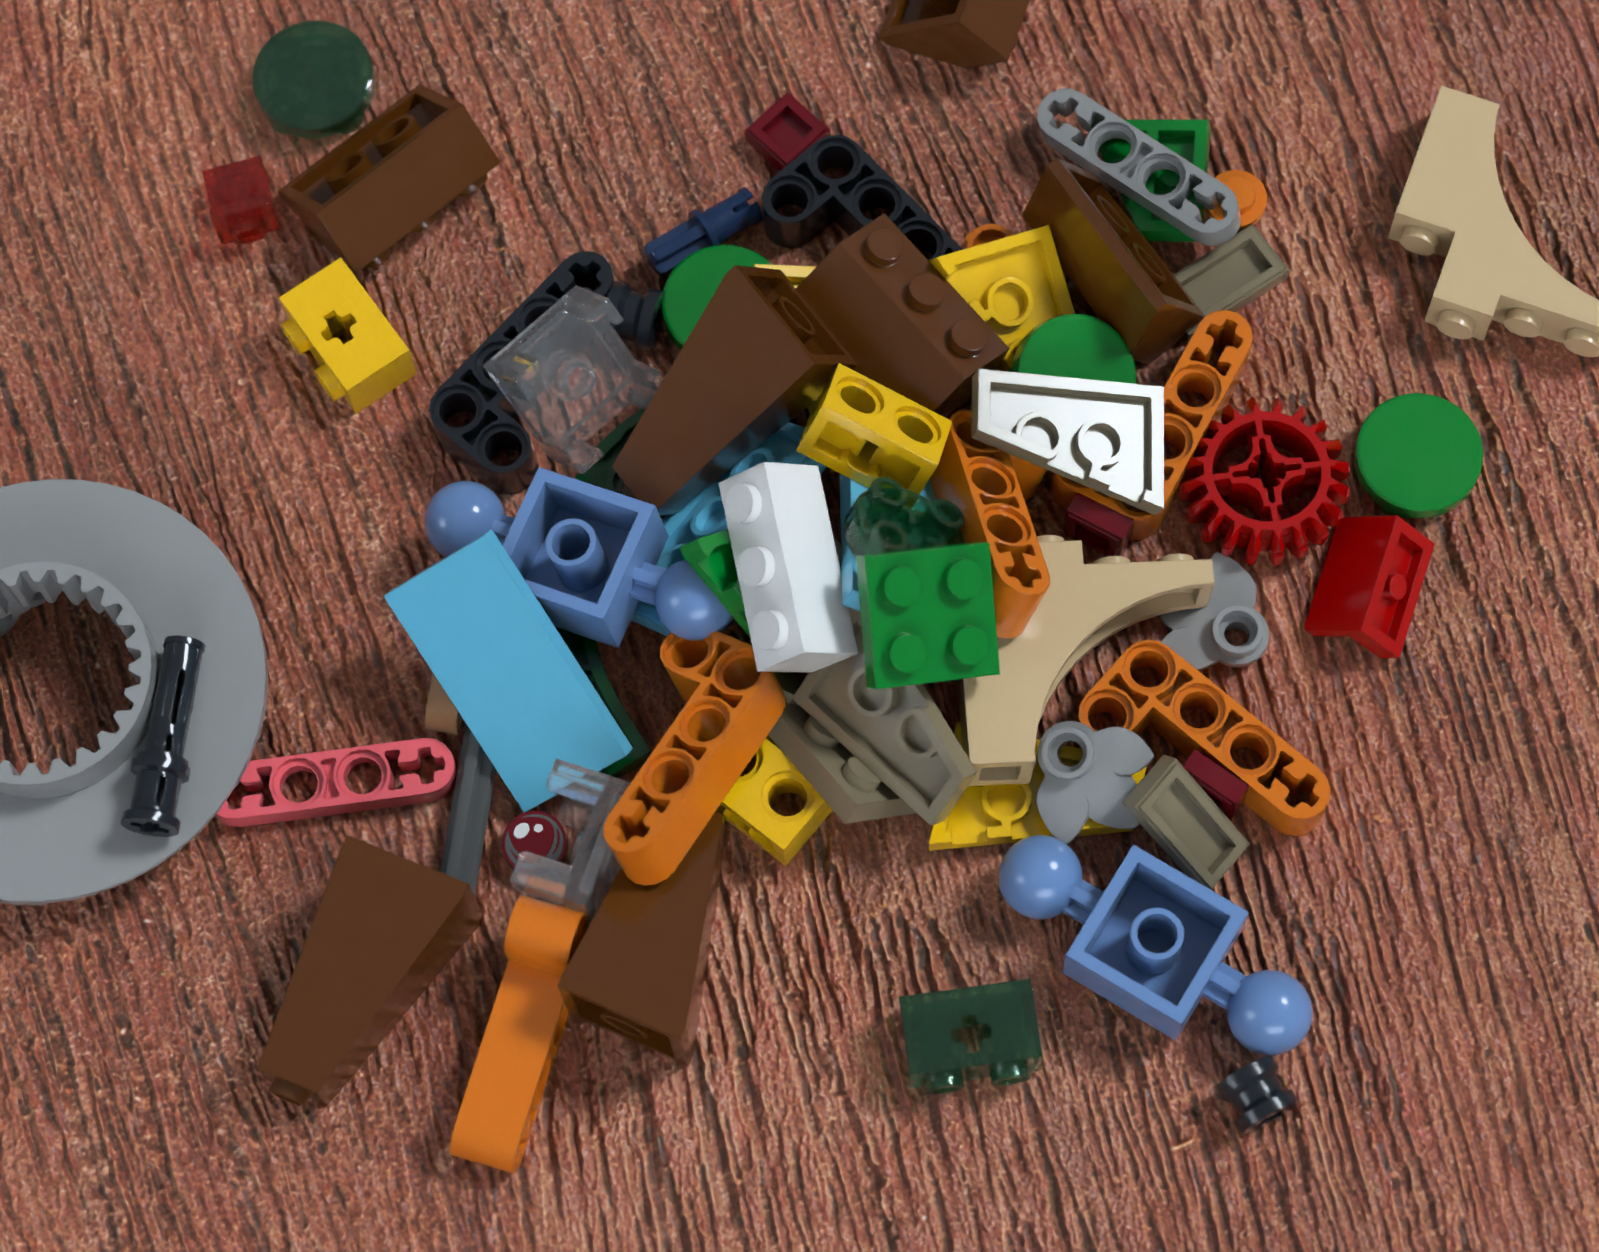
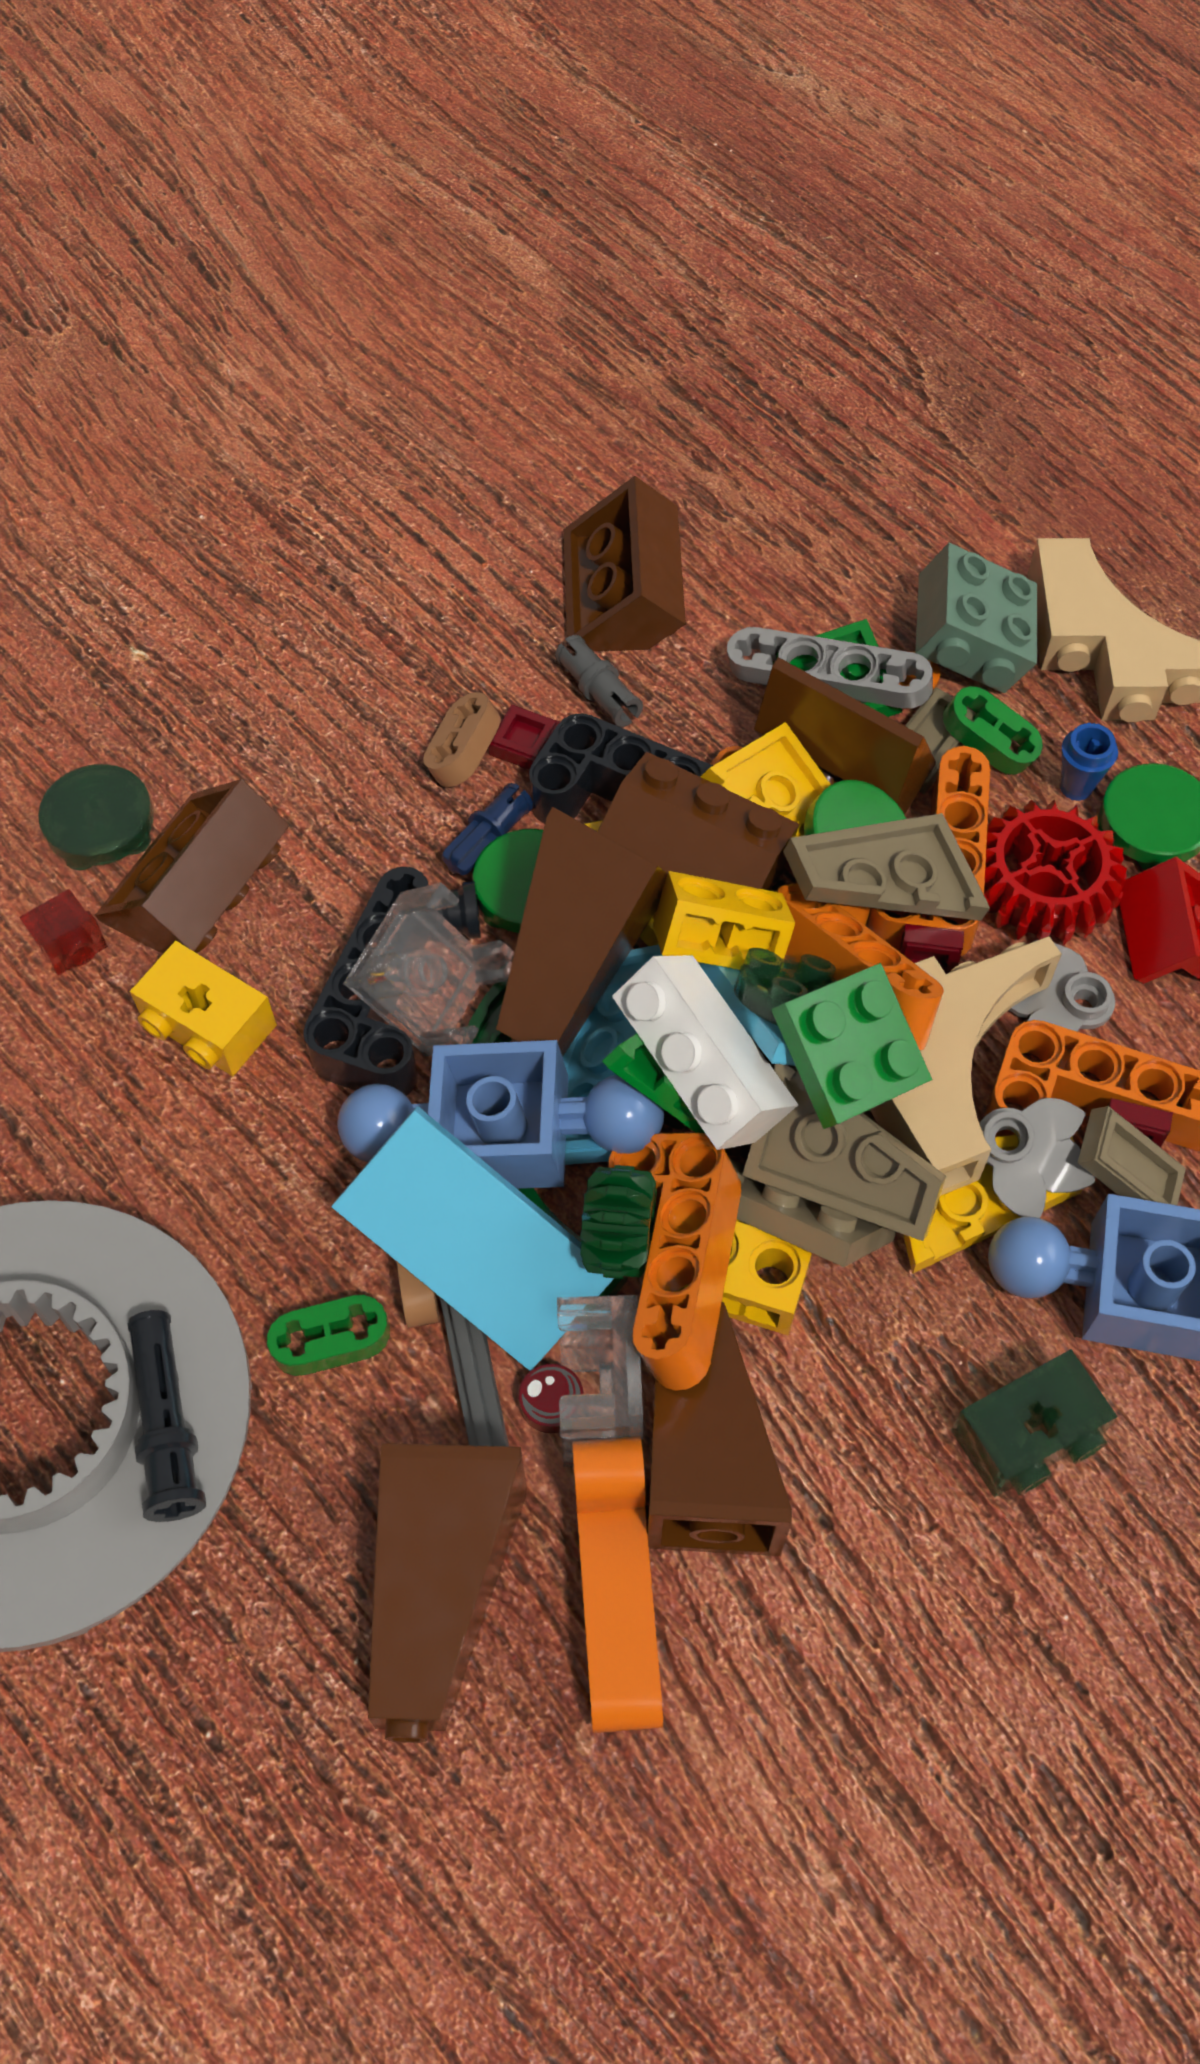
camera: 25 degrees left, 10 degrees down
(332, 792) = (338, 1419): coral beam -> none
(353, 695) = (326, 1320): none -> green beam
(639, 705) = (618, 1221): none -> dark green gear
(718, 117) = (462, 739): none -> medium nougat beam
(891, 94) = (599, 680): none -> dark grey pin
(1297, 290) = (992, 730): none -> green beam
(1324, 163) = (977, 618): none -> sand green brick
(1363, 369) = (1086, 759): none -> blue cone

